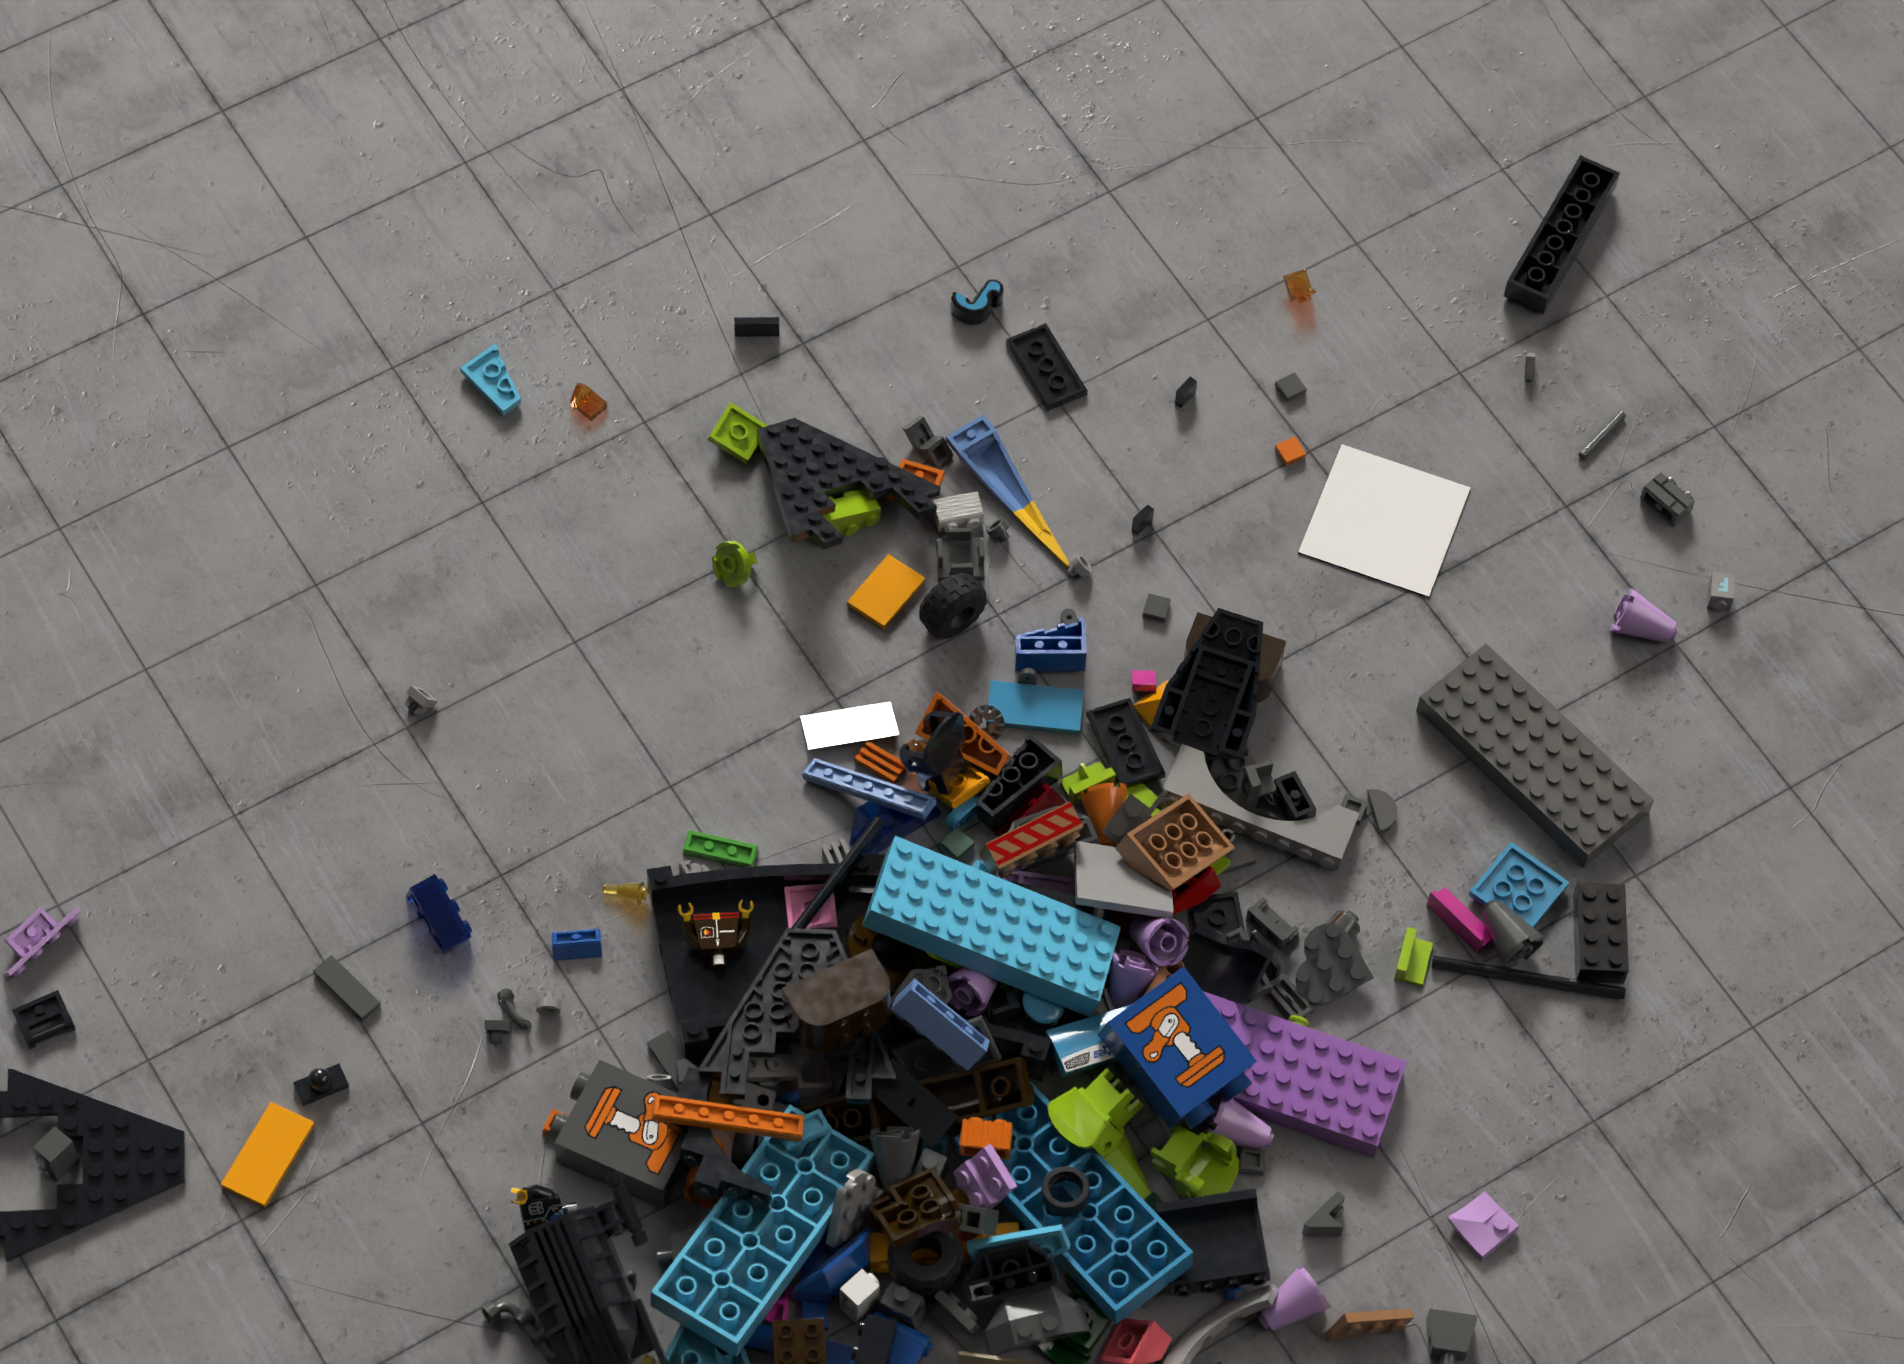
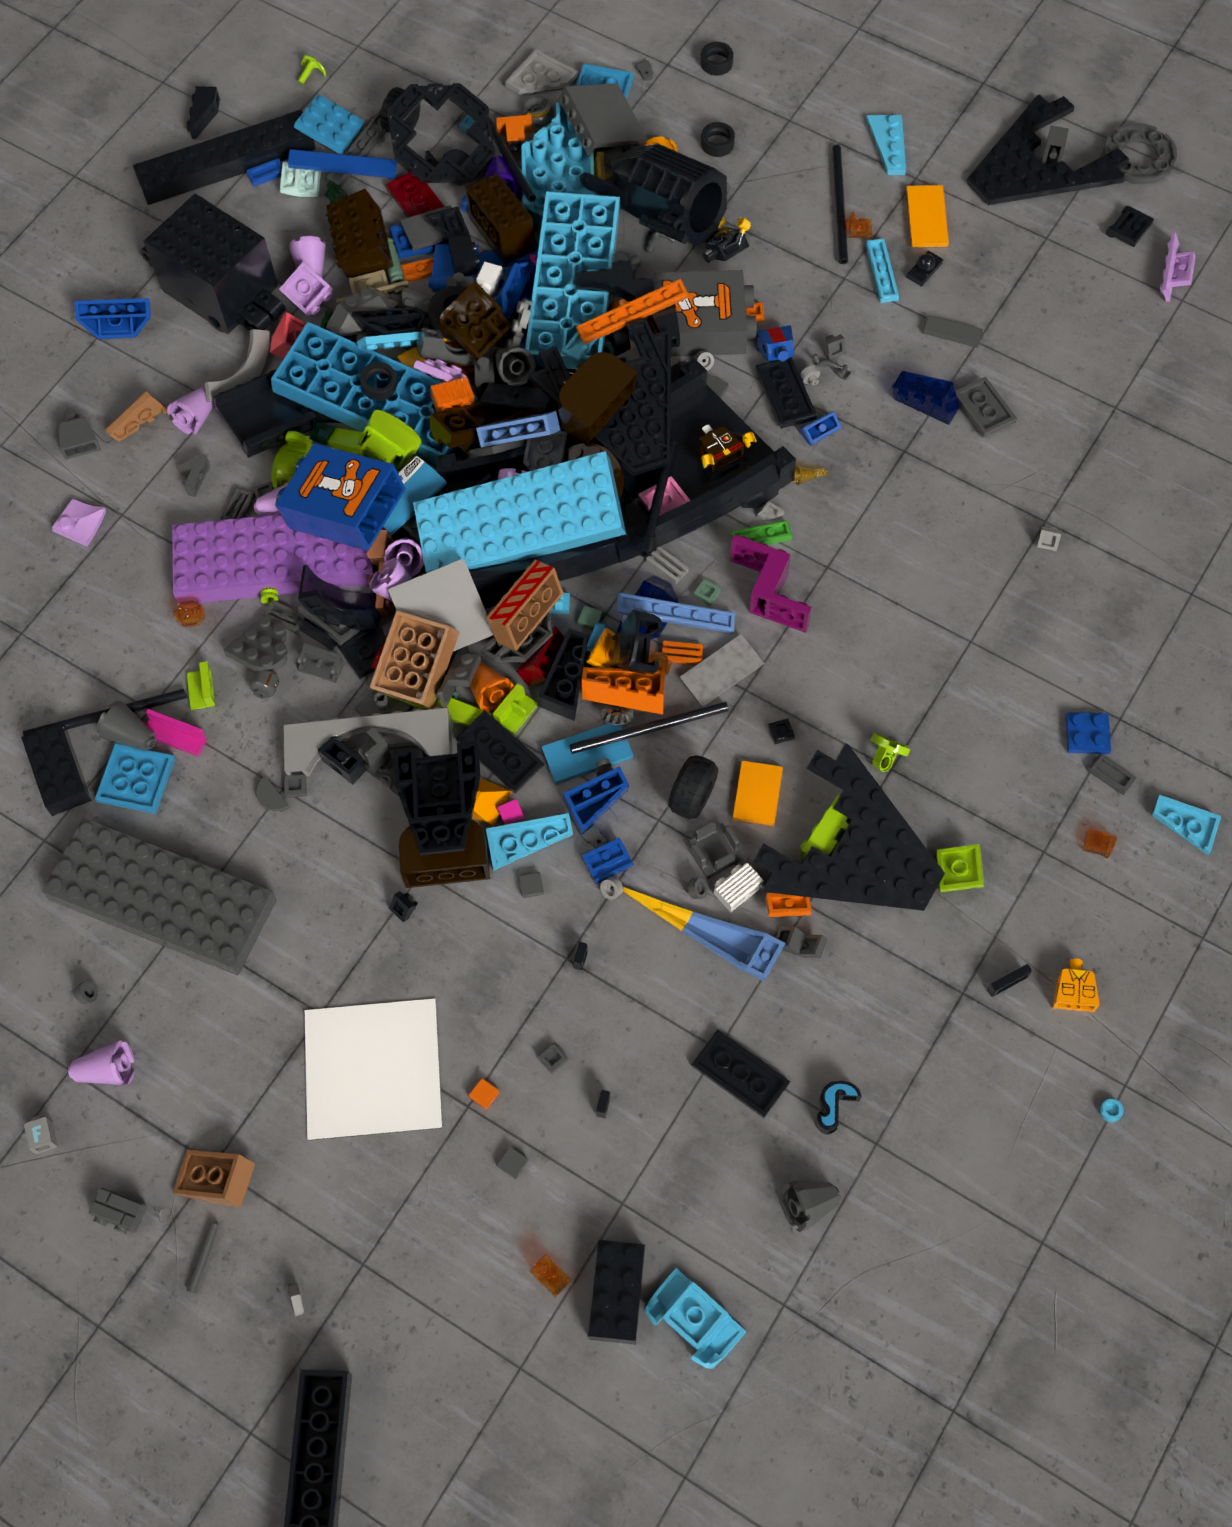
camera: 160 degrees right, 5 degrees up
(233, 1293) = (889, 141): none -> medium azure wing
(359, 1224) = (840, 205): none -> black piece
(362, 1173) = (859, 227): none -> clear orange bracket
(372, 1108) = (882, 270): none -> medium azure tile
(380, 876) = (984, 407): none -> dark grey plate
(524, 501) = (1088, 733): none -> blue plate
(530, 455) = (1112, 774): none -> dark grey tile
(563, 1053) = (775, 343): none -> blue torso
(588, 1001) = (786, 392): none -> black plate
(702, 294) = (1076, 989): none -> light orange torso
(737, 199) = (1111, 1110): none -> medium azure tile
(749, 776) = (765, 595): none -> magenta bracket
(816, 814) = (707, 592): none -> sand green tile
(826, 639) = (781, 731): none -> black tile
(960, 696) = (648, 727): none -> black piece
(1046, 238) = (808, 1202): none -> dark grey cone
(1071, 593) = (607, 860): none -> blue plate
(1151, 653) = (523, 838): none -> medium azure wing
(1194, 211) = (694, 1318): none -> medium azure piece
(1212, 453) = (552, 1058): none -> dark grey tile
(1248, 250) = (616, 1292): none -> black brick
(1276, 1172) = (240, 506): none -> dark grey tile
(1294, 639) = (402, 906): none -> black tile
(1395, 1042) = (190, 613): none -> clear orange head
(1569, 487) = (214, 1177): none -> medium nougat slope
(1638, 698) = (86, 992): none -> dark grey tile

